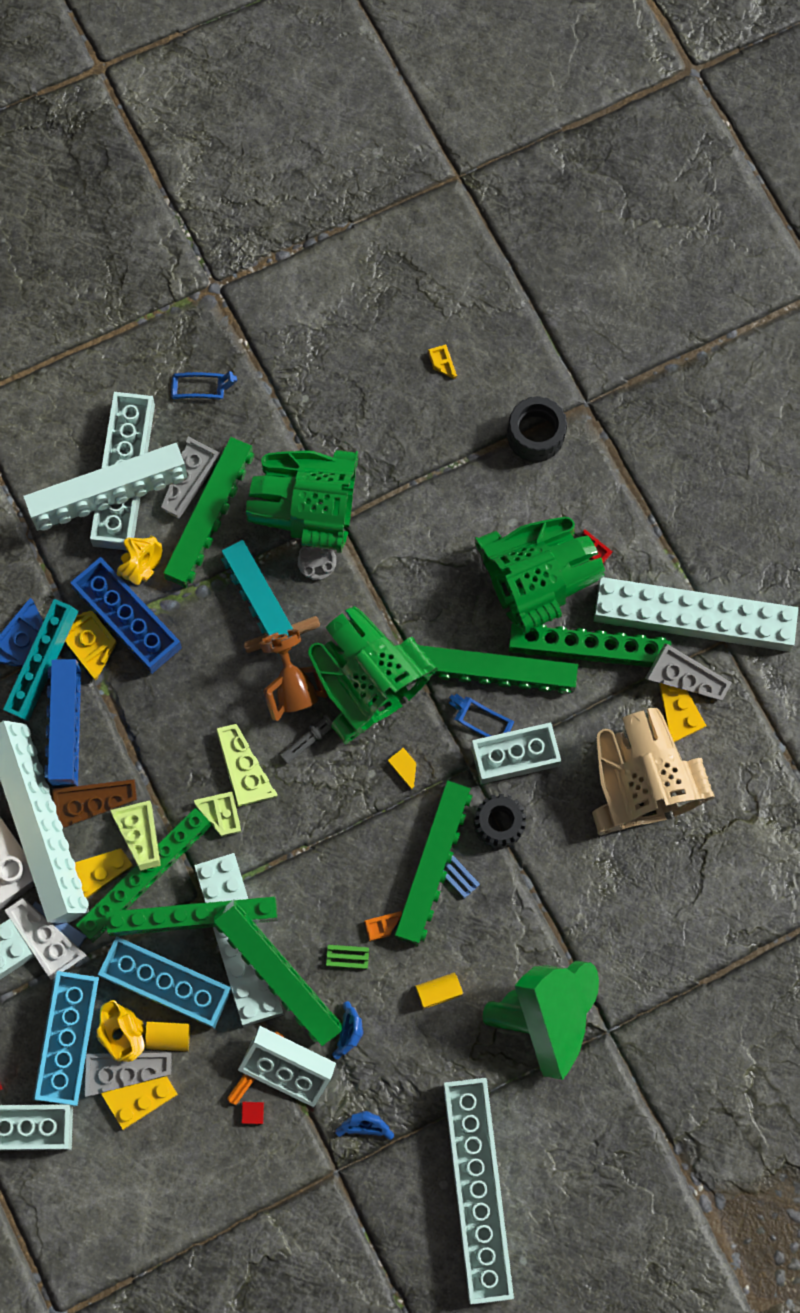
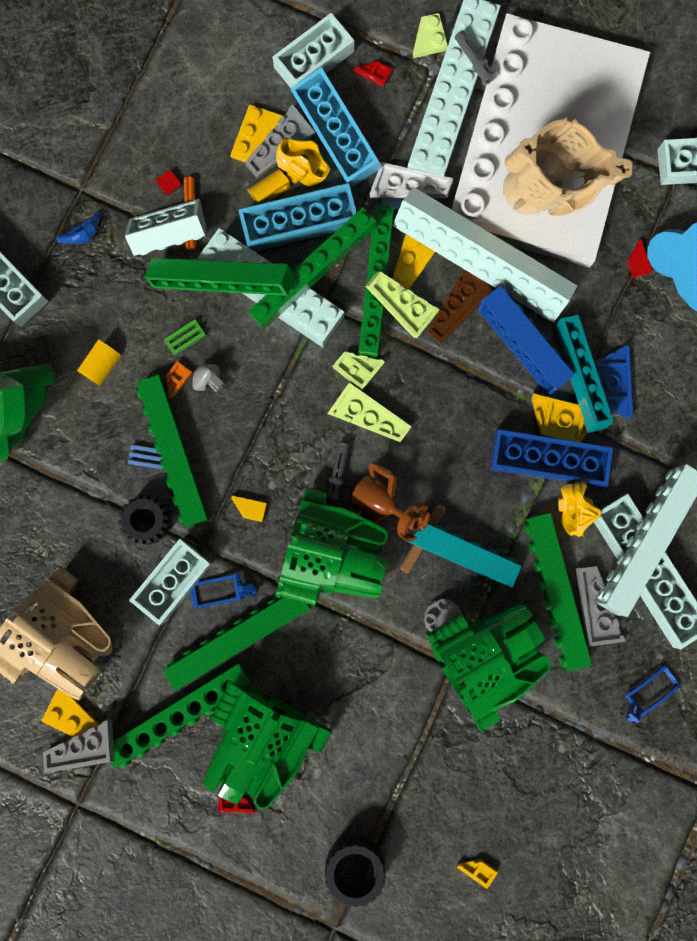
camera: 145 degrees right, 10 degrees up
(351, 1031) = (141, 287): blue piece -> none
(355, 904) = (206, 376): none -> light grey piece
(696, 614) = (110, 810): light aqua brick -> none

